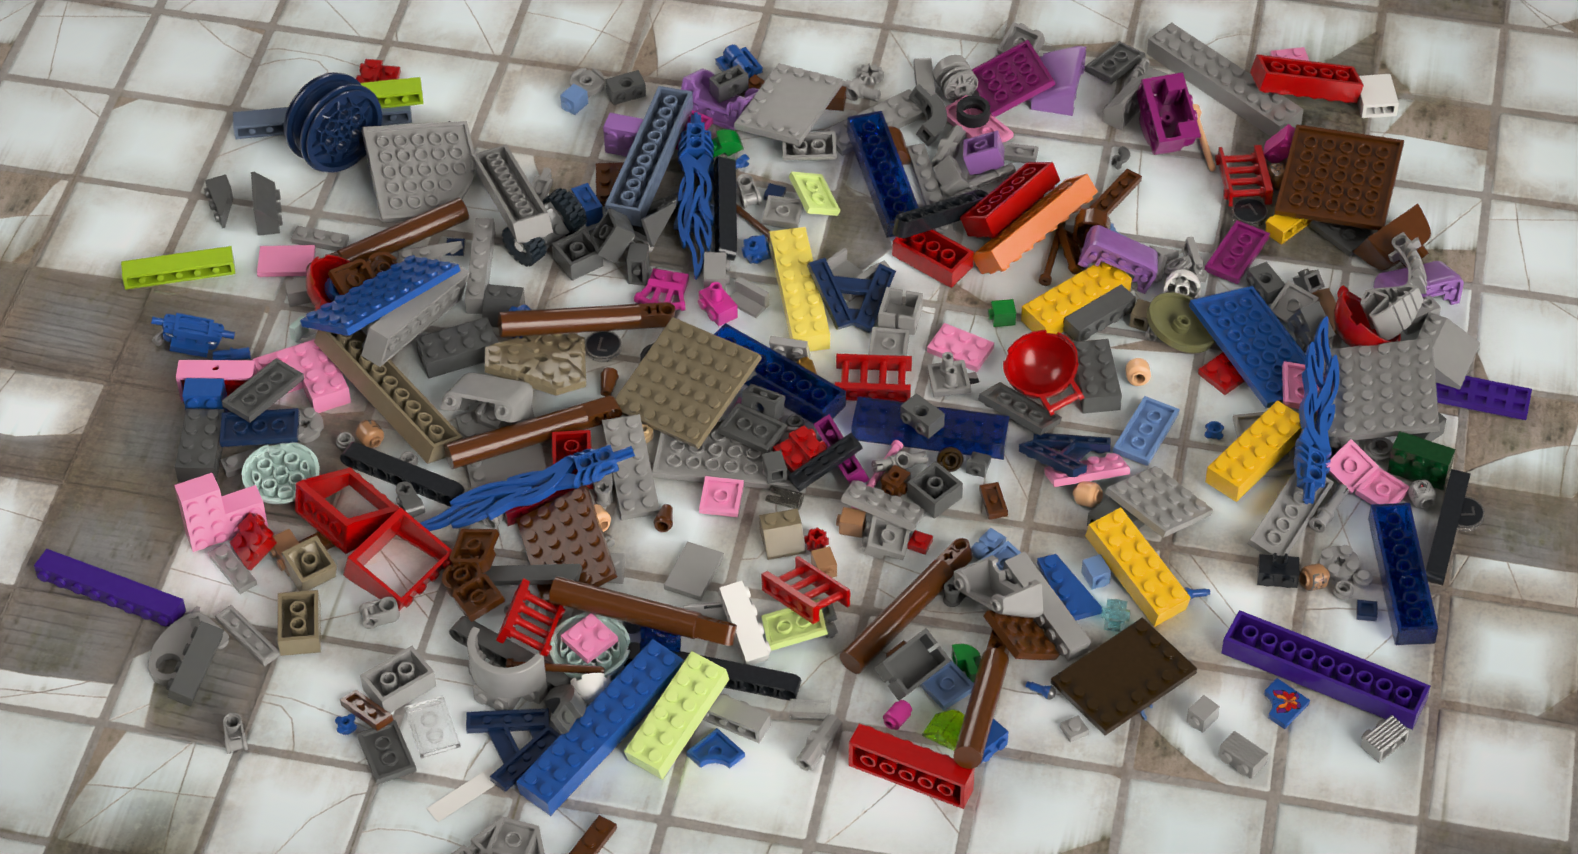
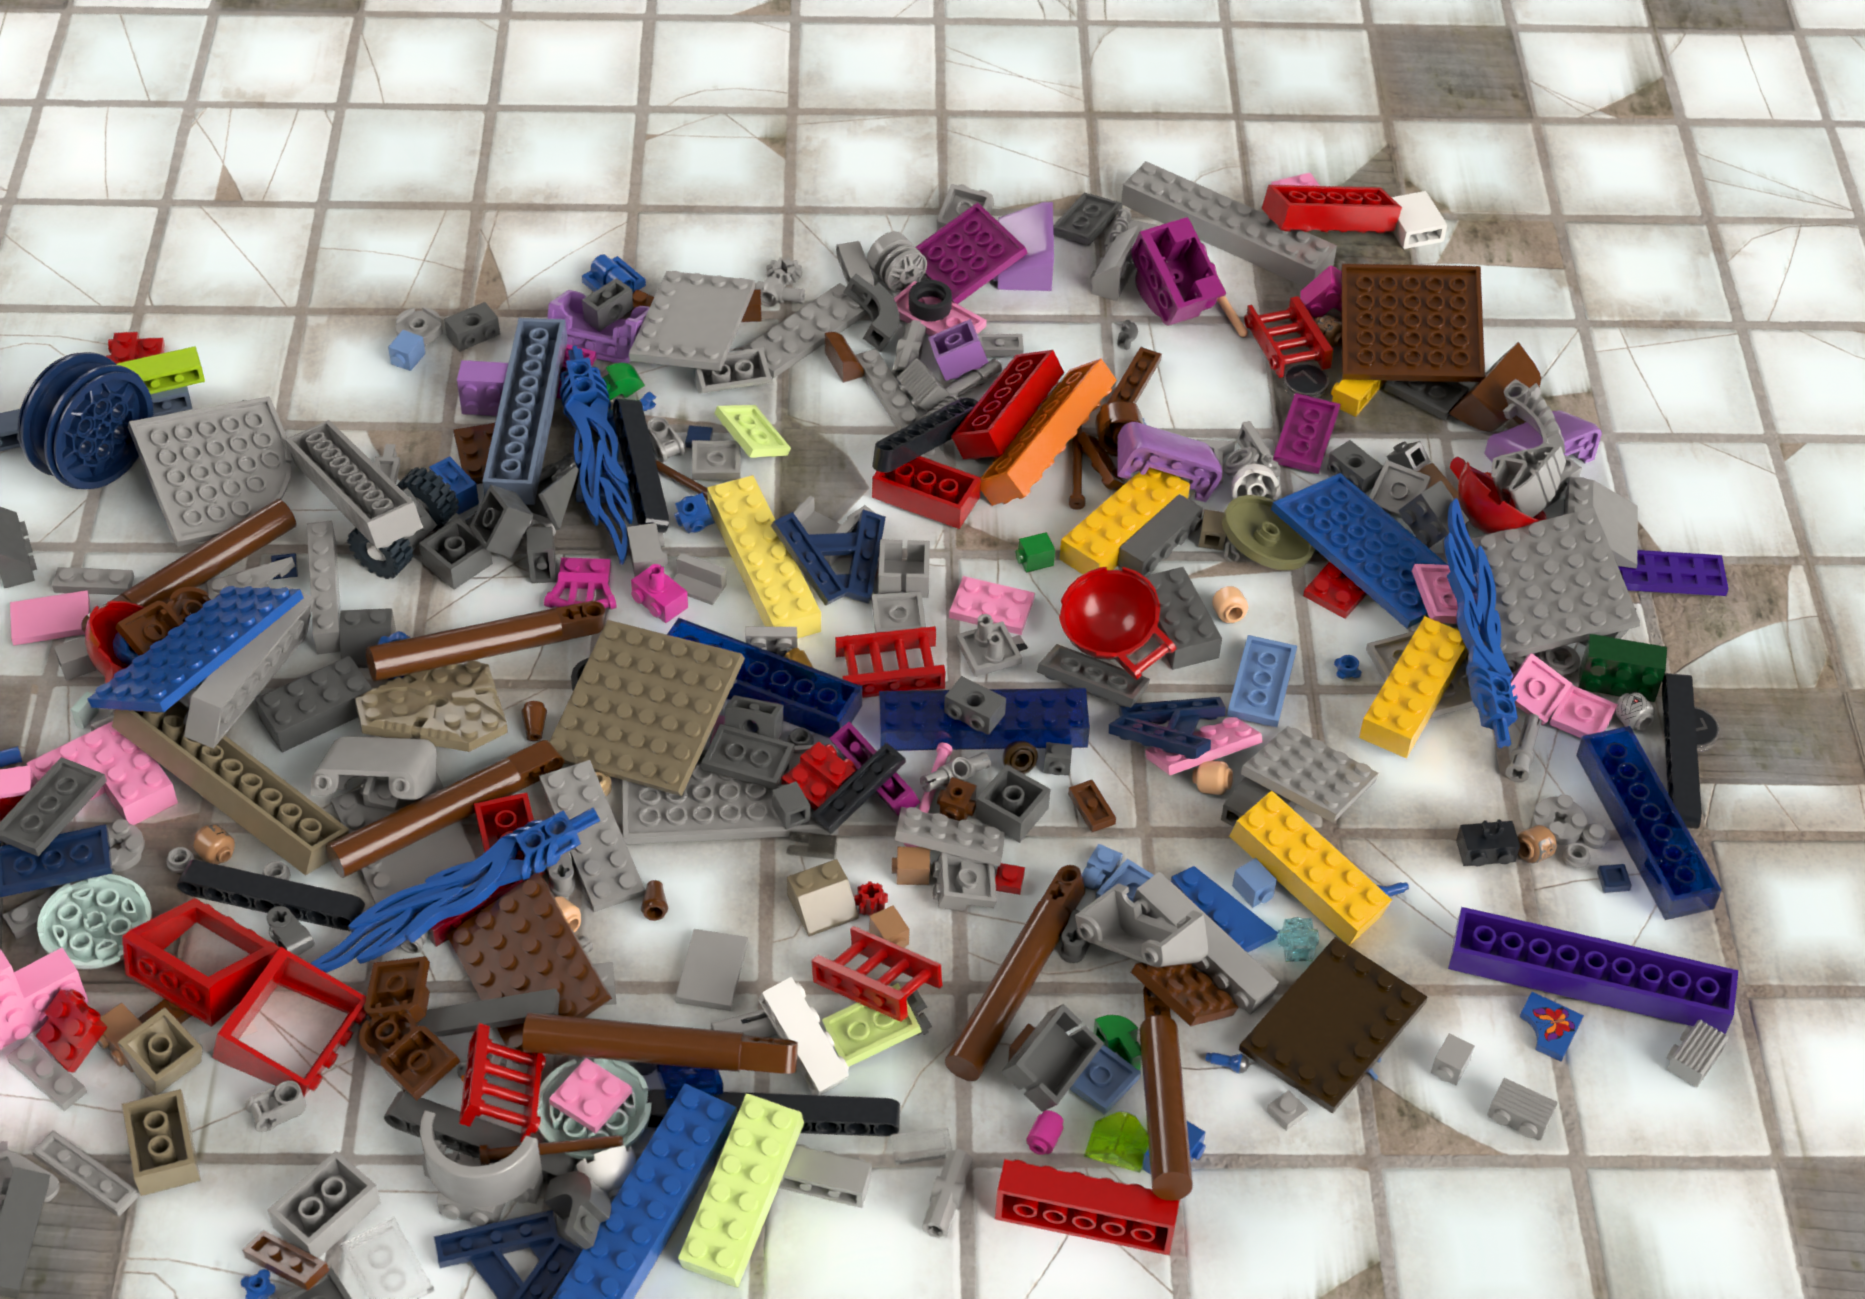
camera: 15 degrees left, 0 degrees up
(603, 346) = (516, 672): black tile -> none
(715, 749) = (804, 1228): blue tile -> none
(721, 496) = (726, 857): bright pink plate -> none
(881, 167) = (833, 388): clear blue brick -> none
(1286, 519) = (1476, 771): light grey plate -> none

